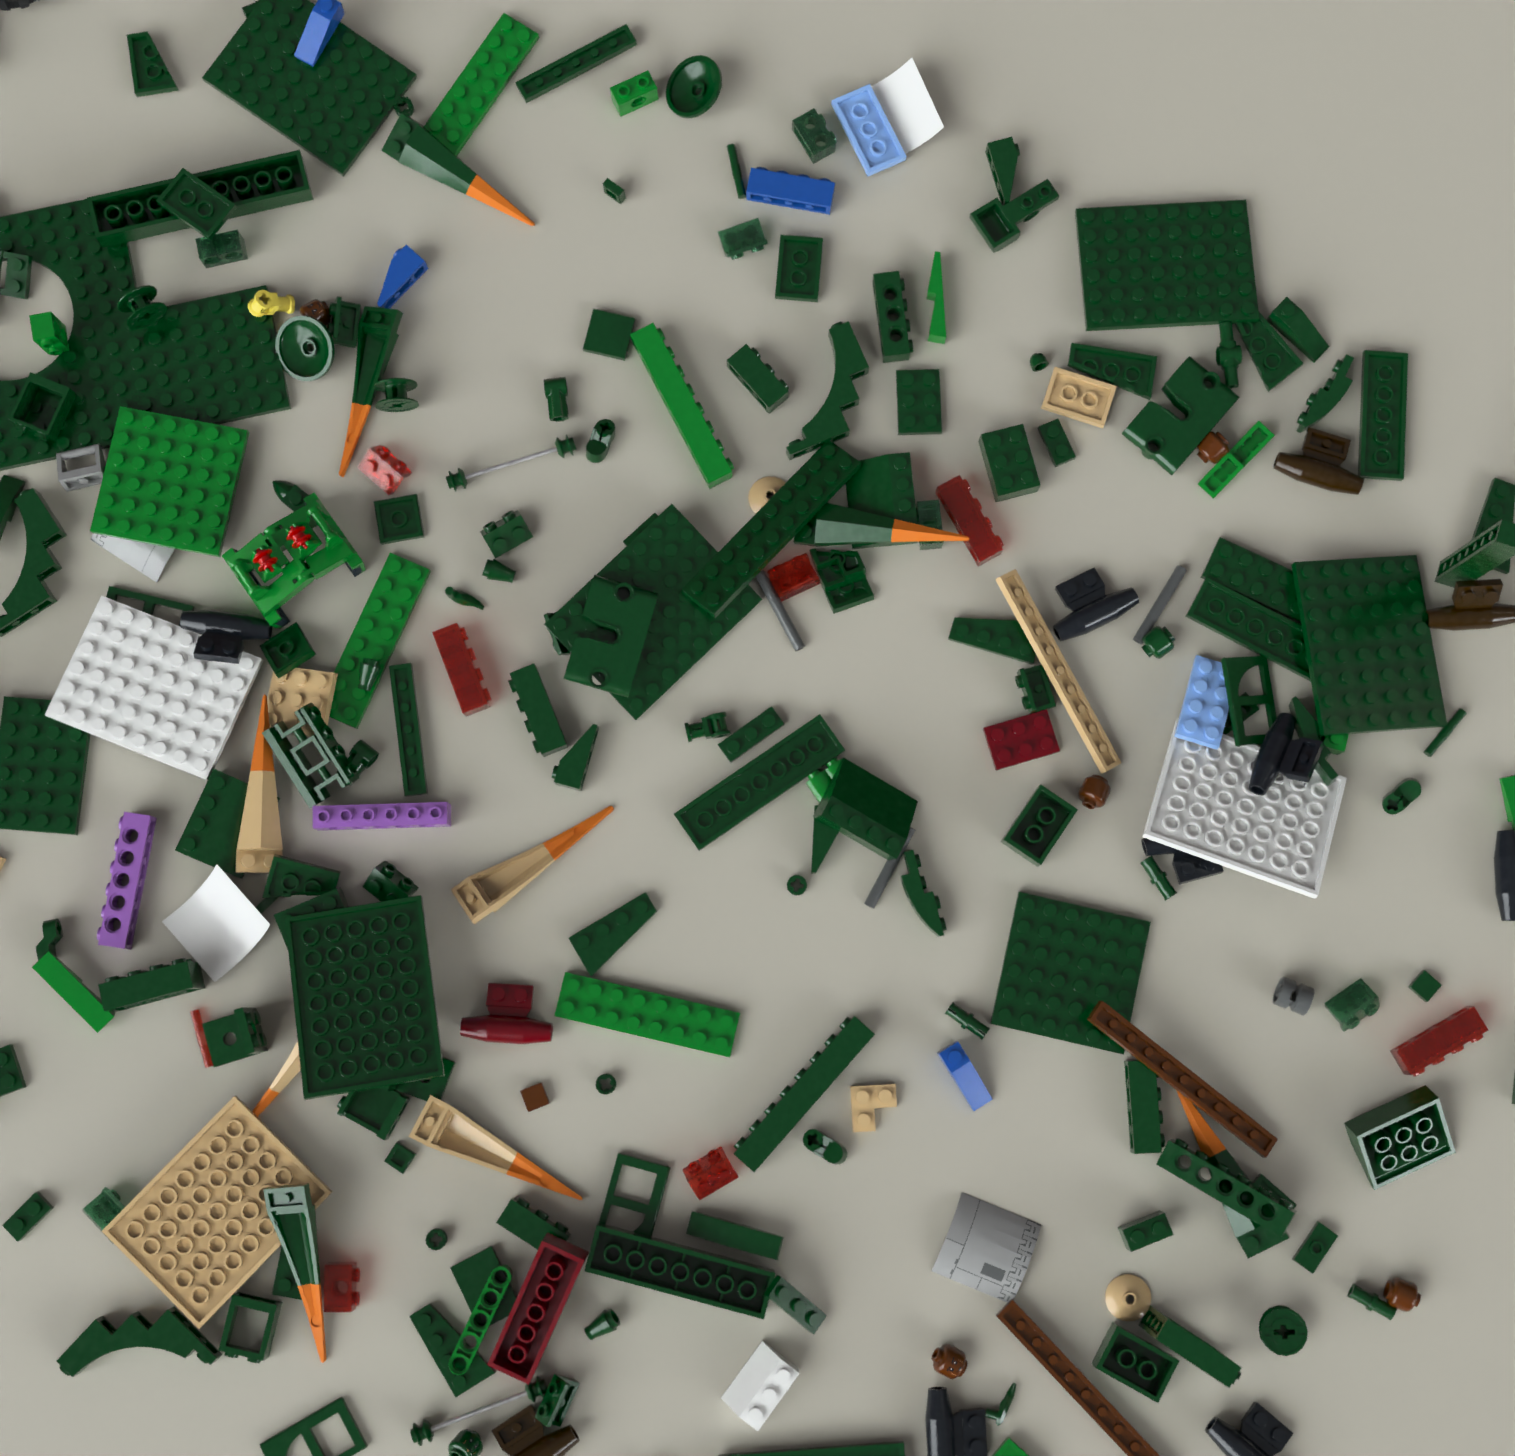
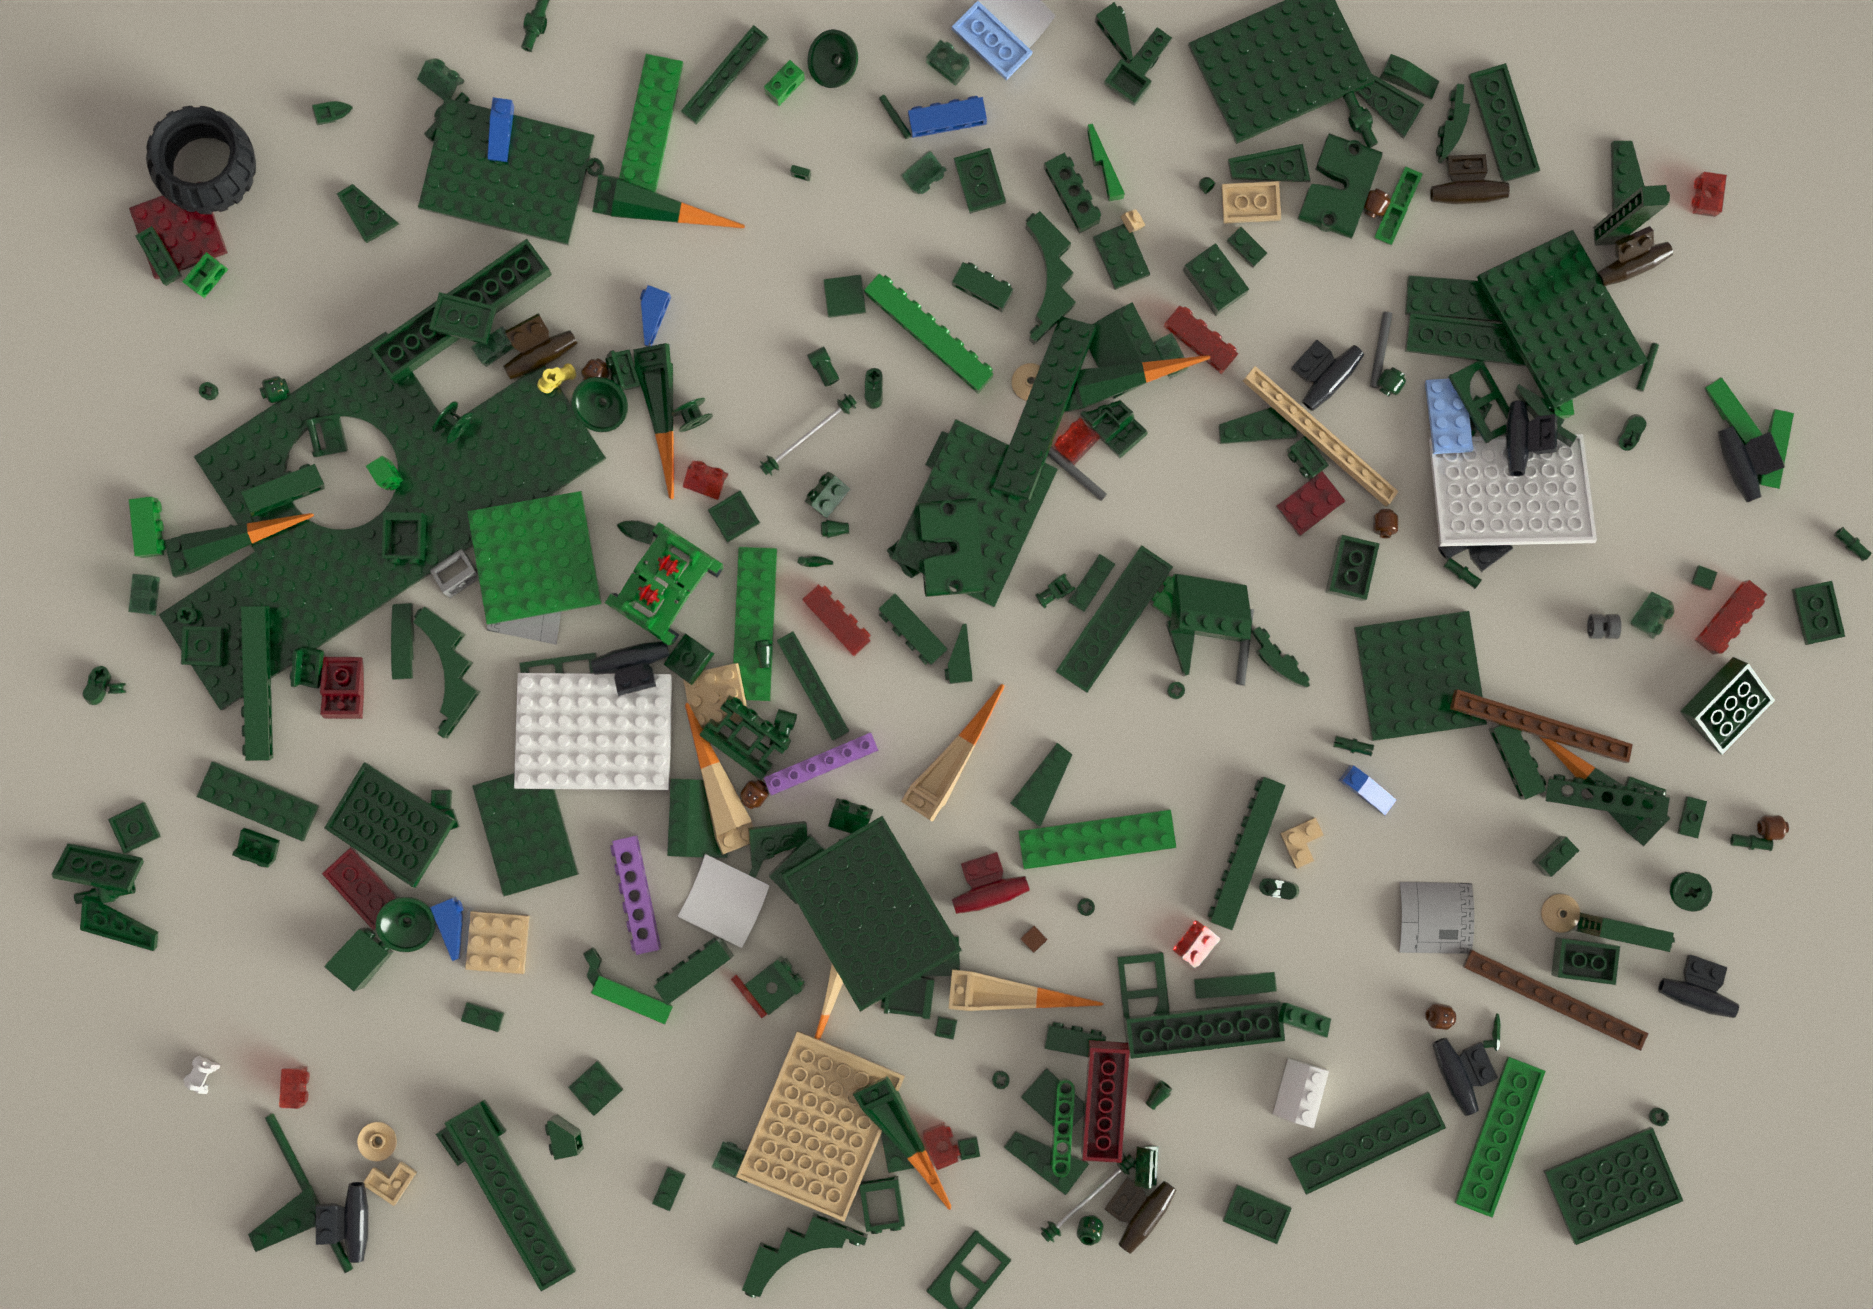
camera: 20 degrees left, 5 degrees up
(263, 264) = (535, 346): none -> dark brown plate
(297, 820) = (754, 794): none -> reddish brown head
(371, 1302) = (969, 1148): none -> dark green tile
(944, 369) = (1132, 221): none -> tan plate

